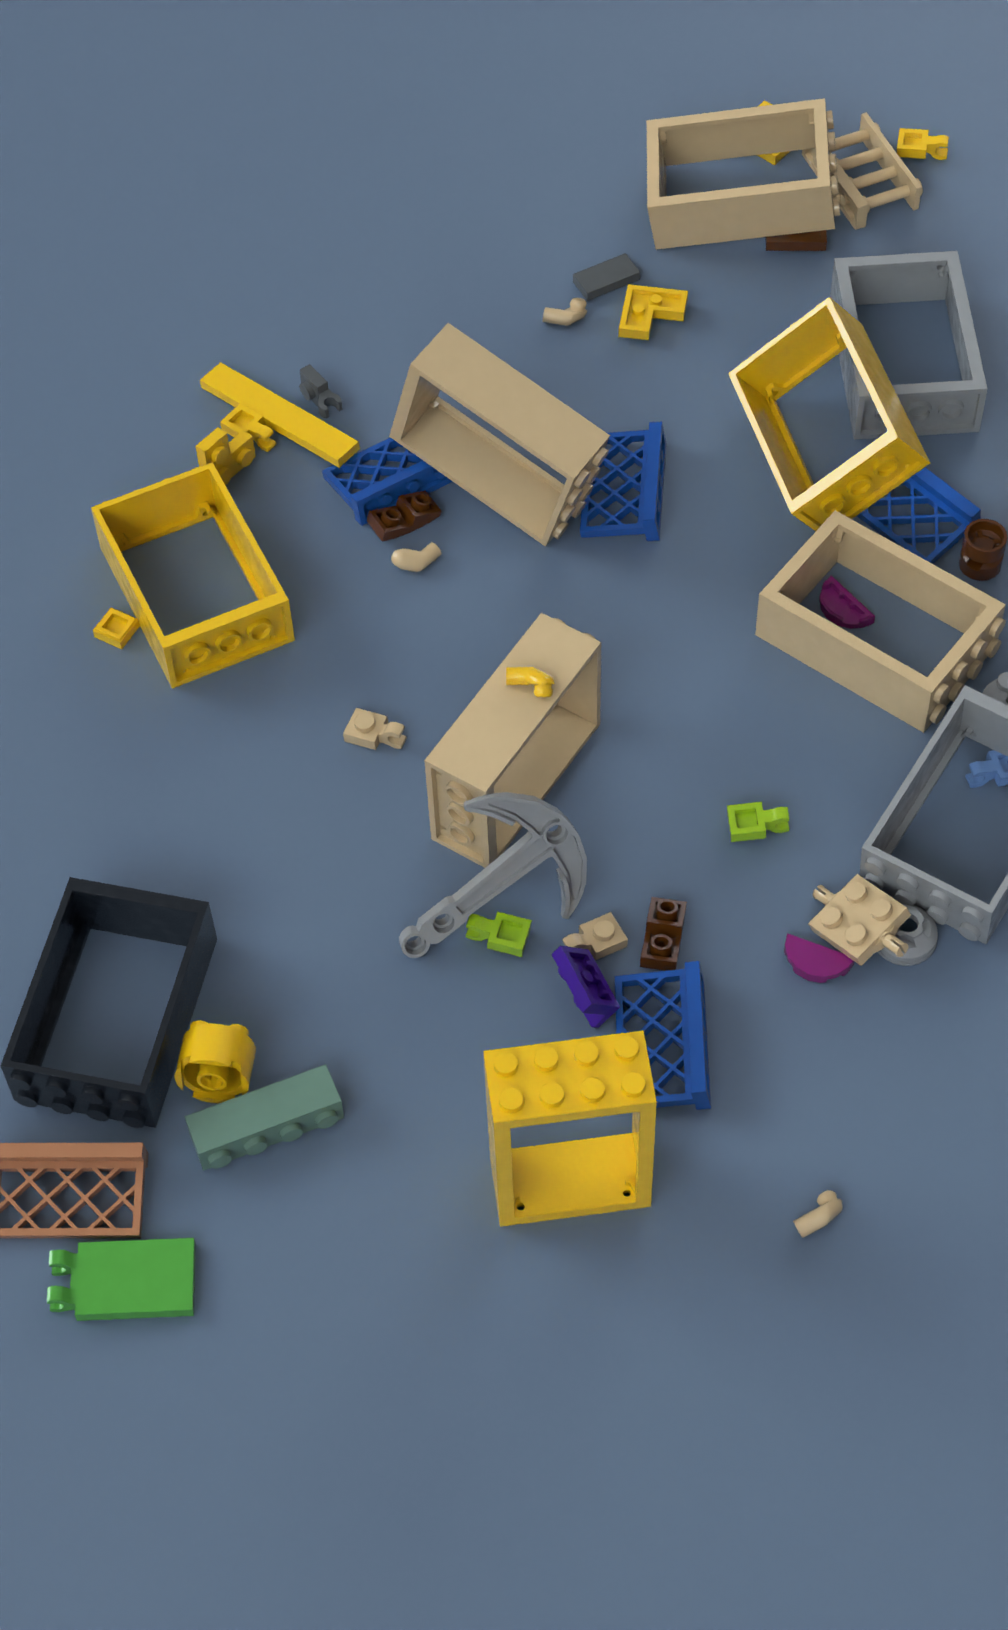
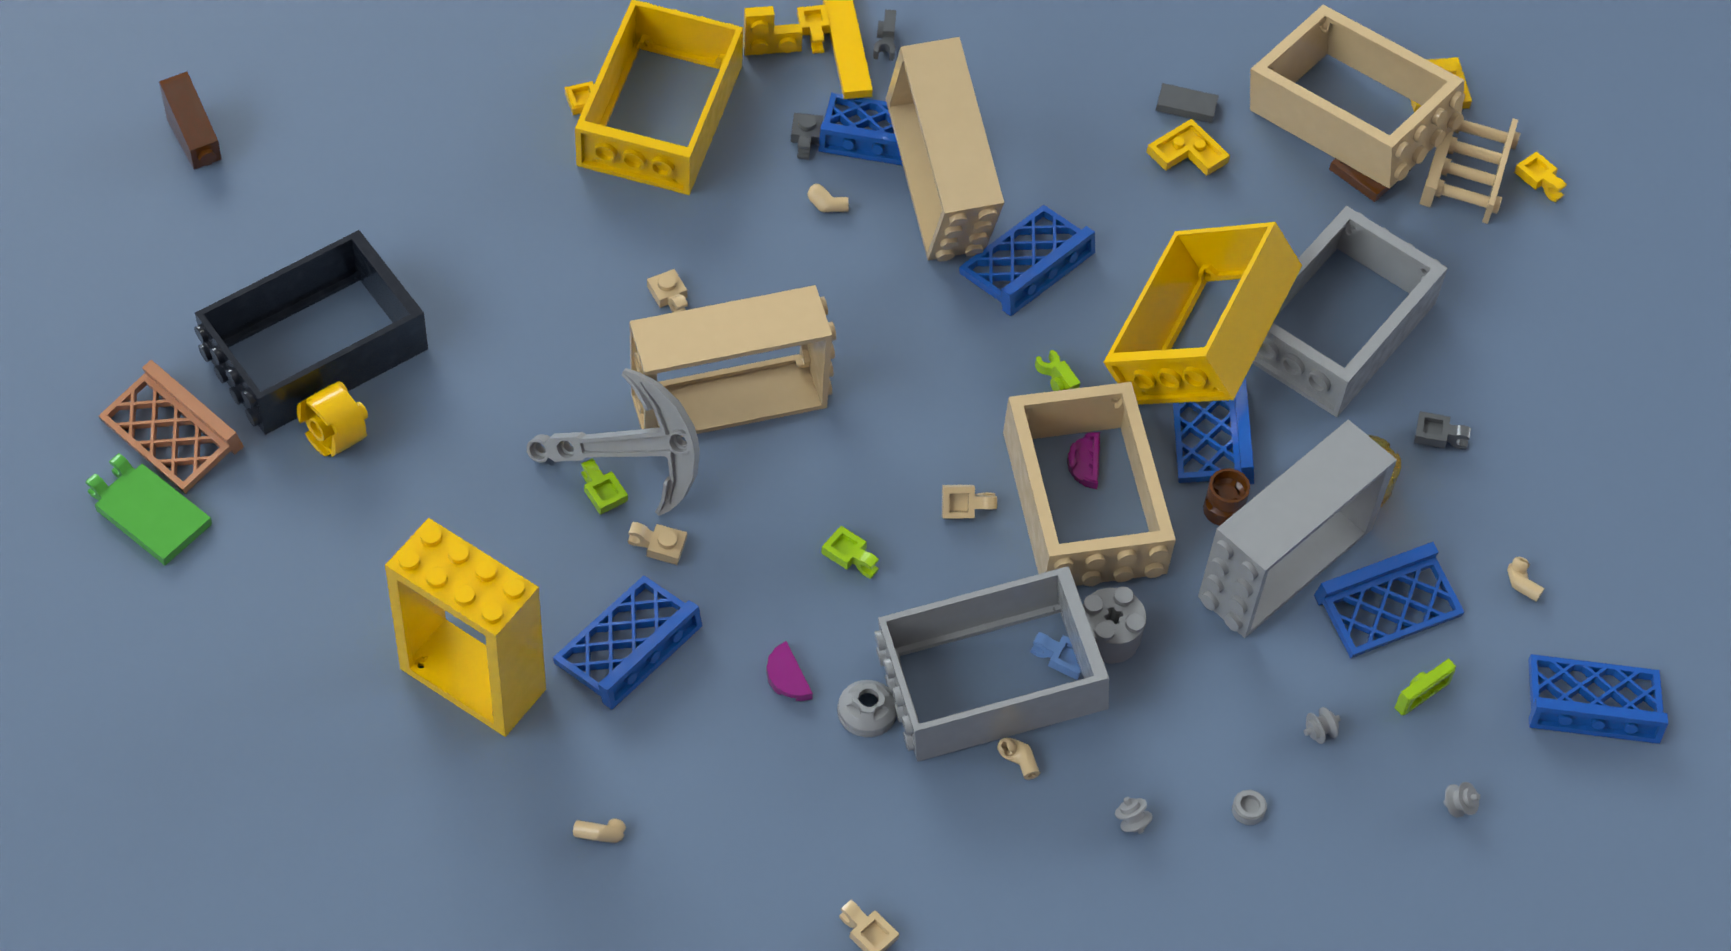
camera: 35 degrees right, 0 degrees up
(264, 1117) = (329, 480): sand green brick -> none
(336, 515) = (806, 132): none -> dark grey plate
(408, 515) = (858, 167): reddish brown slope -> none
(531, 676) = (756, 322): yellow arm -> none
(568, 316) = (1126, 111): tan arm -> none
(586, 983) = (612, 560): dark purple bracket -> none
(663, 934) = (708, 575): reddish brown slope -> none
(759, 555) = (1061, 374): none -> lime plate
(794, 709) = (961, 501): none -> tan plate
(860, 920) = (839, 670): tan plate -> none

